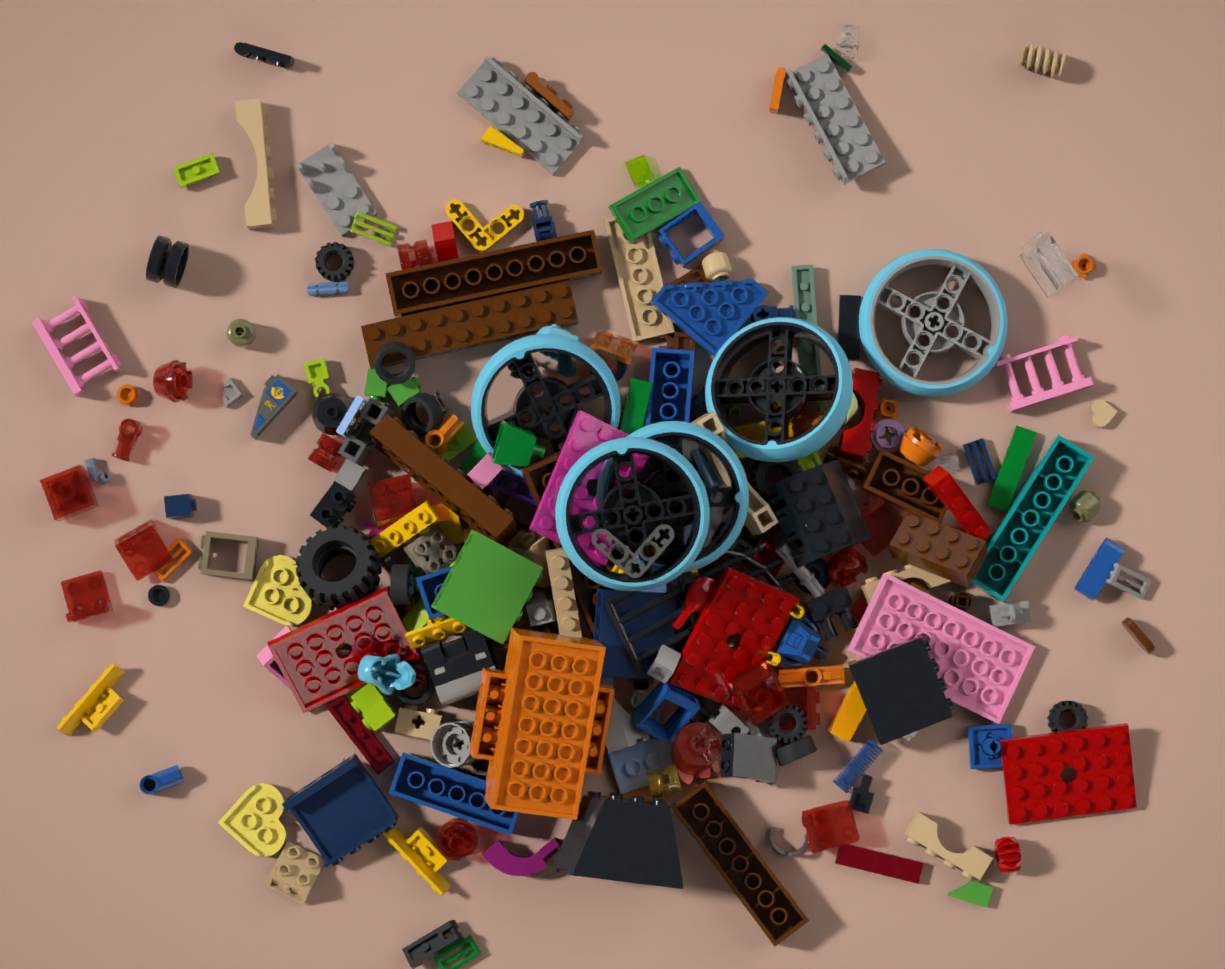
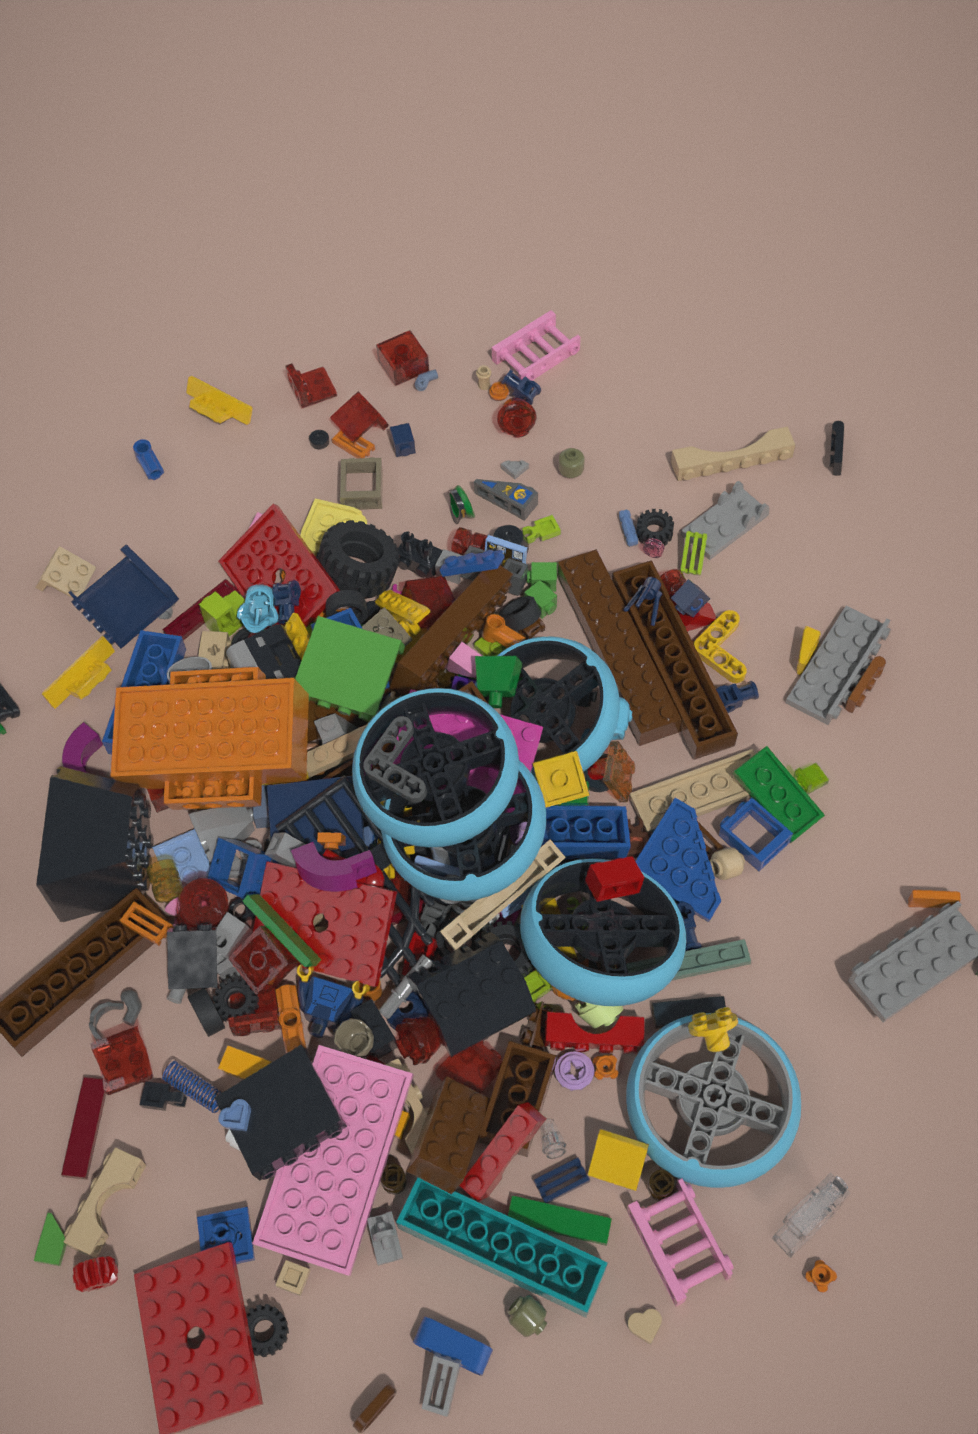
camera: 85 degrees right, 25 degrees down
(104, 406) = (483, 374): none -> tan pin
(127, 439) = (459, 395): clear red connector -> none
(131, 369) = (522, 387): none -> dark blue connector
(167, 261) = (625, 396): black wheel -> none
(196, 170) = (715, 413): lime plate -> none
(256, 820) = (109, 534): light yellow plate -> none
(279, 456) = (460, 505): none -> piece
(359, 267) = (653, 548): none -> clear pink tile
(368, 453) = (472, 563): none -> blue plate
(379, 643) = (286, 599): none -> dark blue connector
(398, 378) = (554, 567): black tyre -> none
(426, 281) = (648, 591): none -> dark blue plant
(440, 244) = (690, 598): none -> dark blue brick
(457, 838) = (97, 698): clear red cone -> none
(629, 402) = (561, 779): none -> yellow tile
(665, 620) = (331, 840): none -> orange plate
(698, 812) = (161, 933): none -> orange tile
(703, 627) = (330, 874): none -> magenta arch
(737, 371) = (614, 878): none -> red brick
(737, 675) = (281, 930): none -> green tile
(774, 817) = (133, 1005): none -> dark grey arm
(845, 620) = (354, 1038): none -> dark tan hair
(884, 311) = (714, 1028): none -> yellow plate
(902, 726) = (236, 1116): none -> medium blue tile
(919, 447) = (566, 1102): orange cone -> none
(973, 411) = (618, 1159): none -> yellow tile
(998, 382) = (657, 1188): none -> dark brown wheel
(1029, 692) = (293, 1278): none -> tan plate

